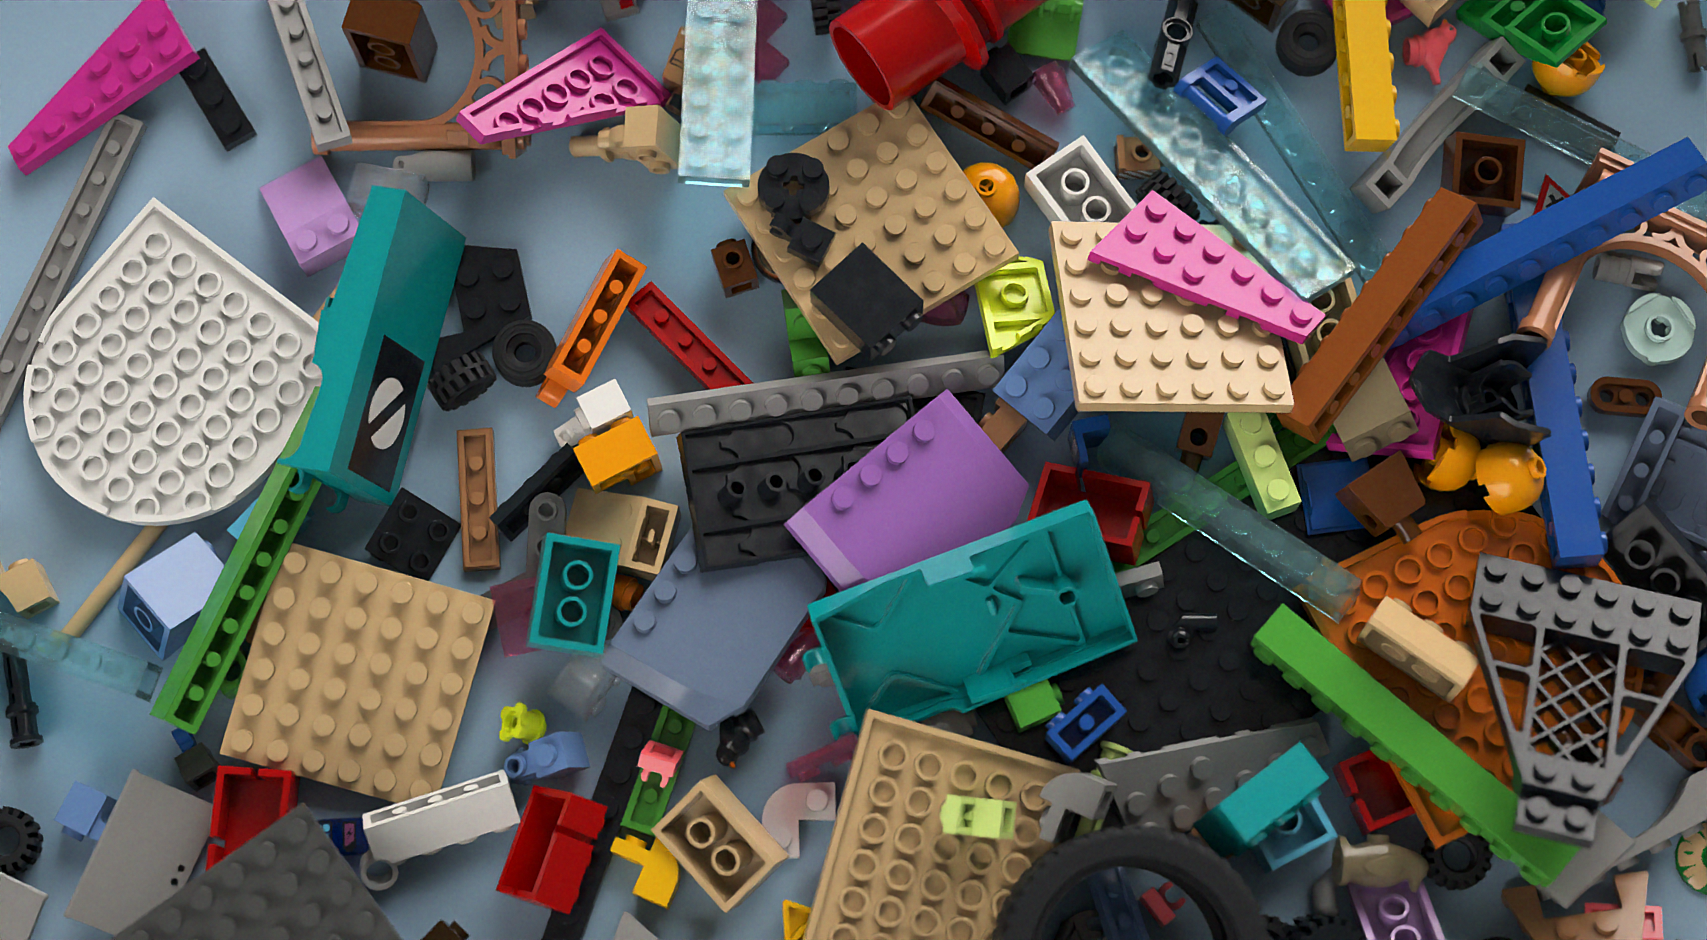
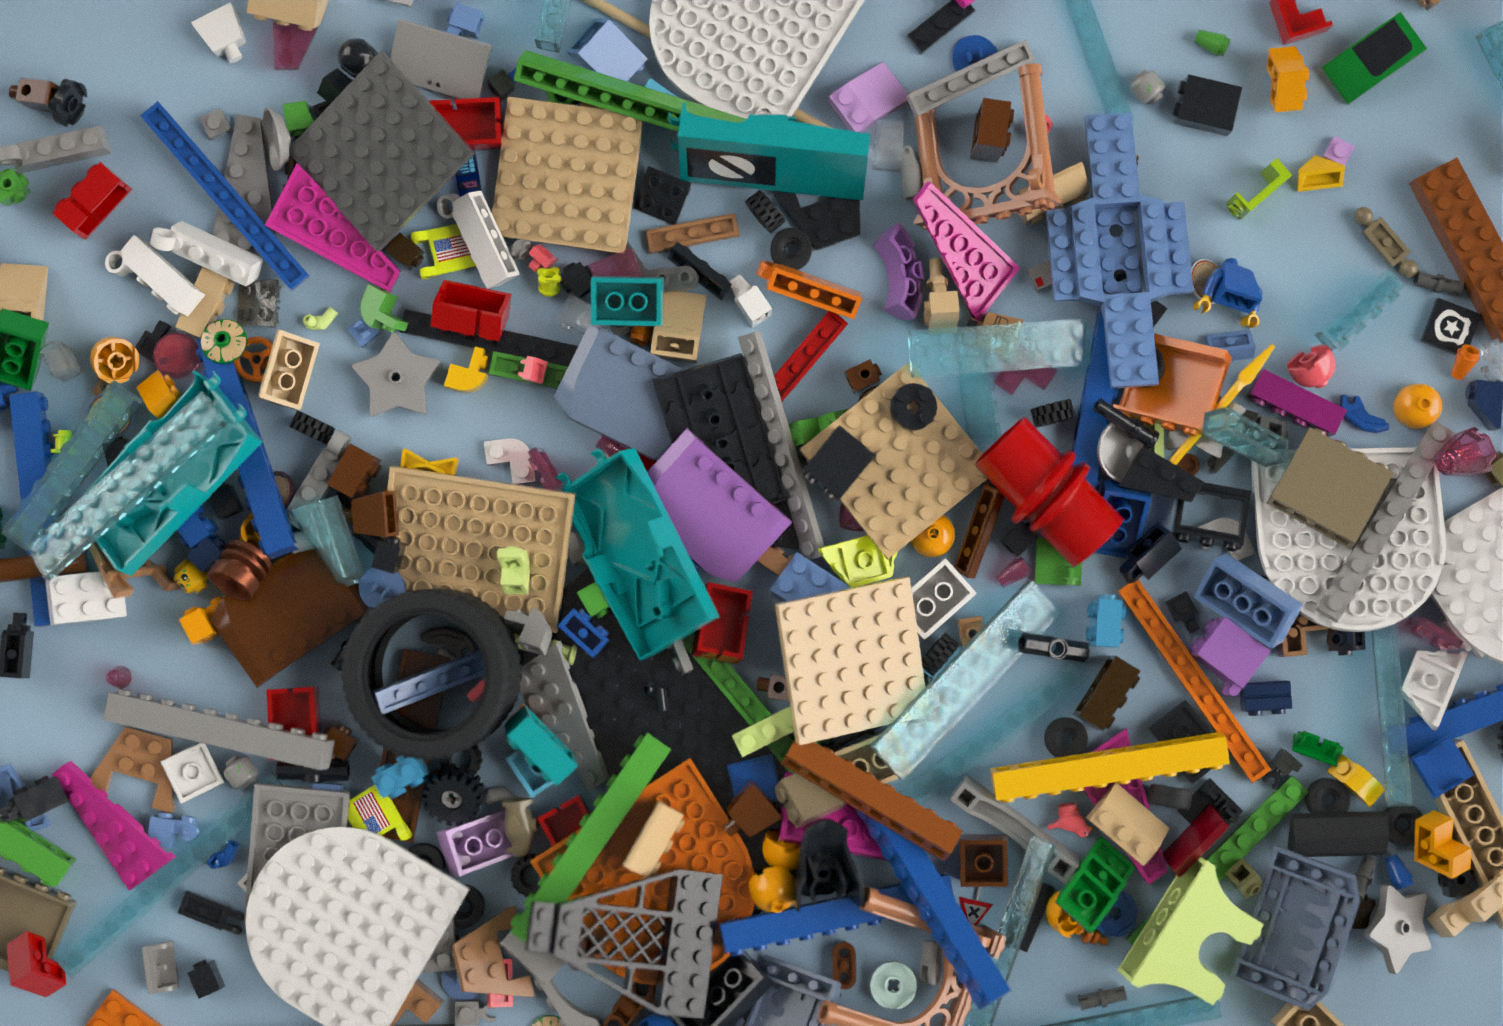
camera: 75 degrees right, 10 degrees up
(266, 62) = (971, 50): none -> blue piece
(448, 882) = (447, 249): none -> neon yellow flag
(465, 764) = (520, 249): none -> light grey plate
(483, 732) = (542, 258): none -> coral tile
(525, 679) = (577, 279): none -> black brick
(548, 758) = (529, 300): medium blue brick -> none
(583, 194) = (903, 272): none -> medium lavender brick
(618, 455) = (725, 317): light orange brick -> none
(720, 843) = (486, 414): tan brick -> none
(736, 735) = (555, 416): black animal -> none
(807, 241) = (877, 419): black plate -> none
(1086, 434) = (772, 610): blue panel -> none
(1197, 265) = (890, 672): wing -> none
(1226, 89) = (1022, 686): blue plate -> none
(1231, 523) = (724, 711): clear light blue brick -> none
(1604, 39) = (1093, 938): none -> orange hair

